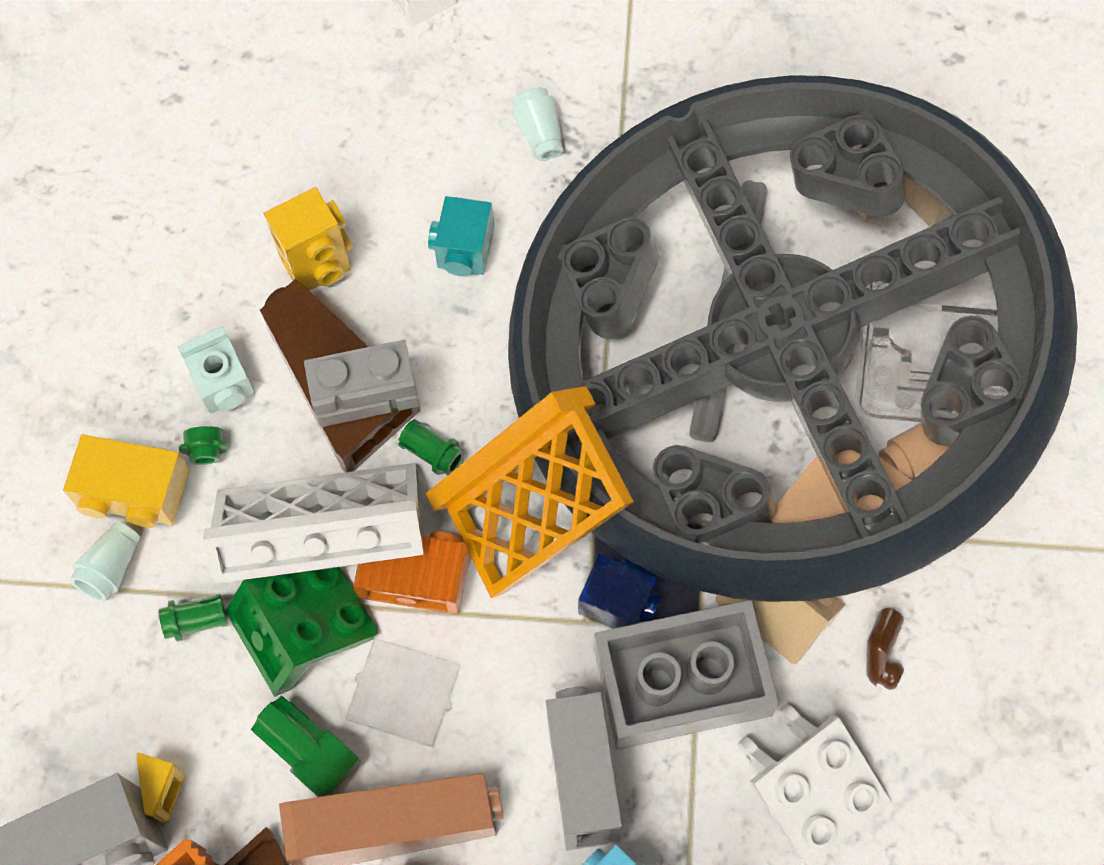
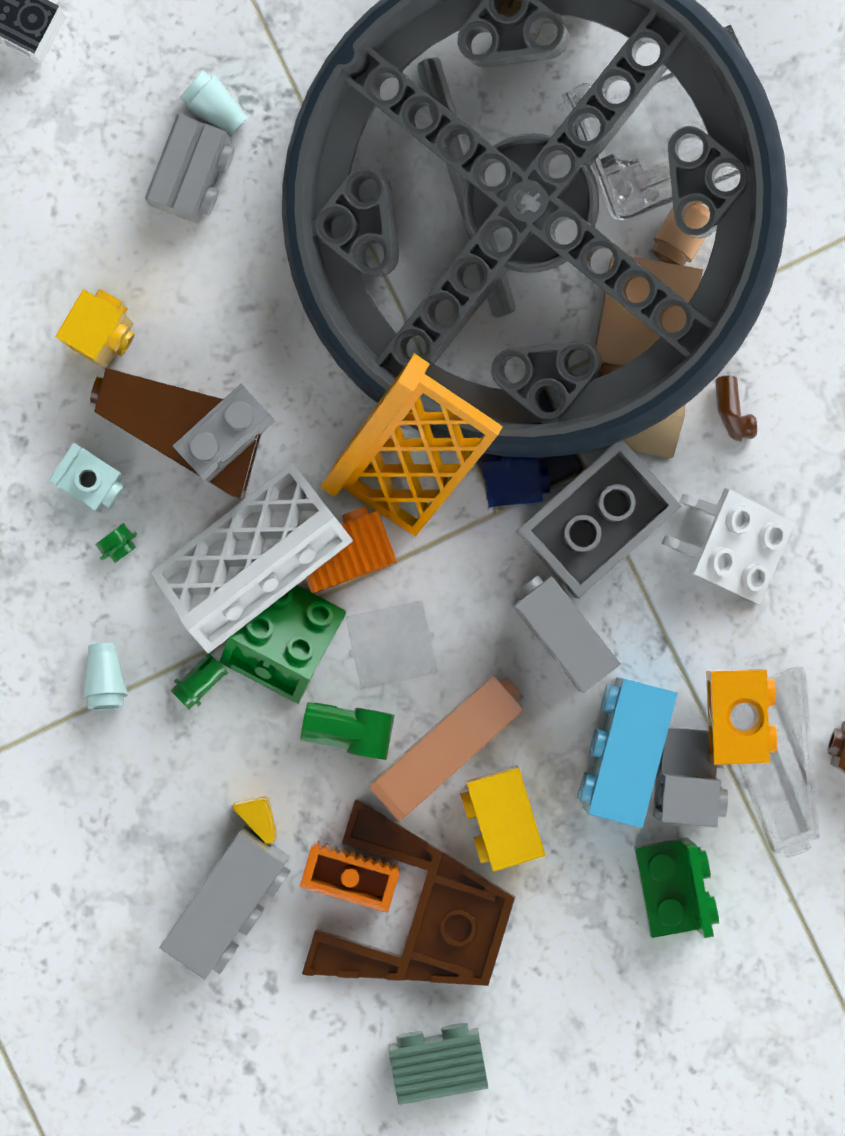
camera: 30 degrees left, 20 degrees up
(126, 481) = (80, 609): yellow brick -> none
(432, 448) = (298, 443): green pin -> none
(462, 236) = (213, 248): teal brick -> none
(484, 159) = (189, 169): none -> light grey brick

